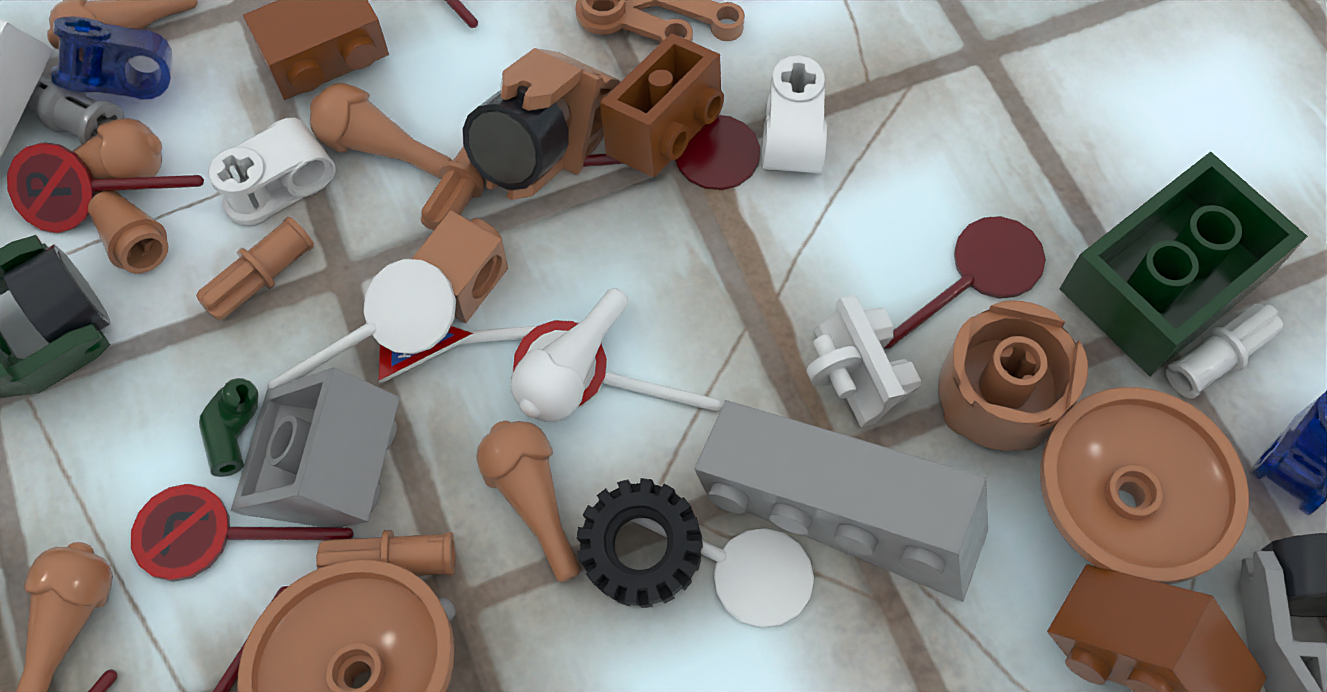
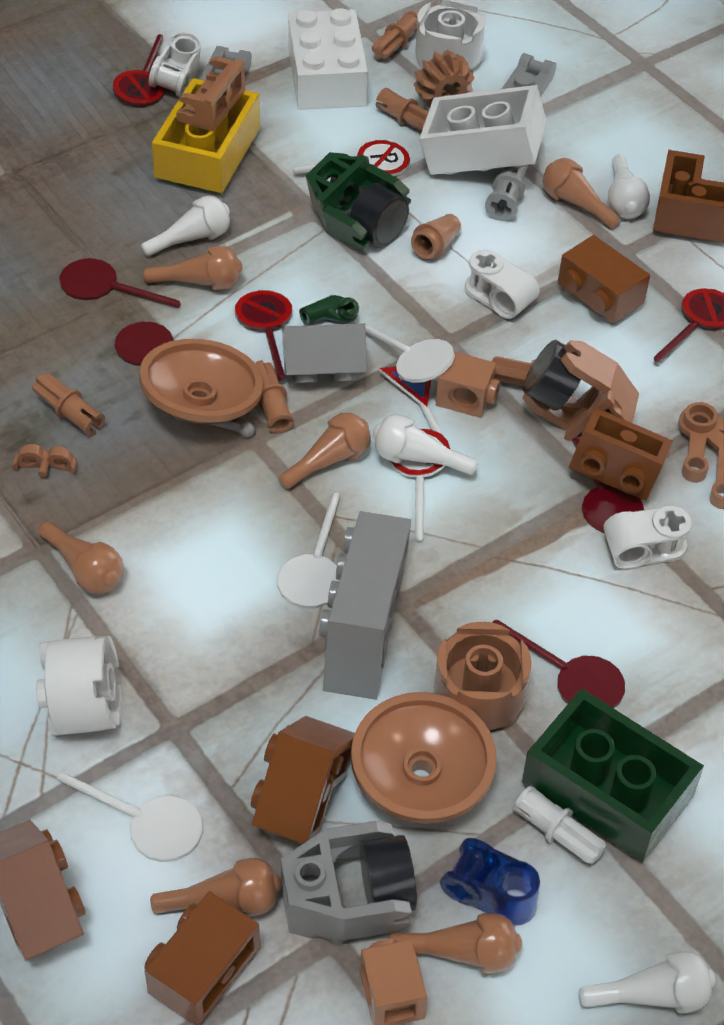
camera: 75 degrees right, 15 degrees down
(55, 186) = (451, 198): piece -> none
(107, 59) = (544, 194): clear blue piece -> none
(122, 151) = (484, 218): nougat piece -> none
(254, 269) = (433, 297): nougat axle -> none
(348, 120) = (550, 311): nougat piece -> none
(615, 510) = (313, 521): black tyre -> none
(856, 364) = (488, 592): white hips -> none

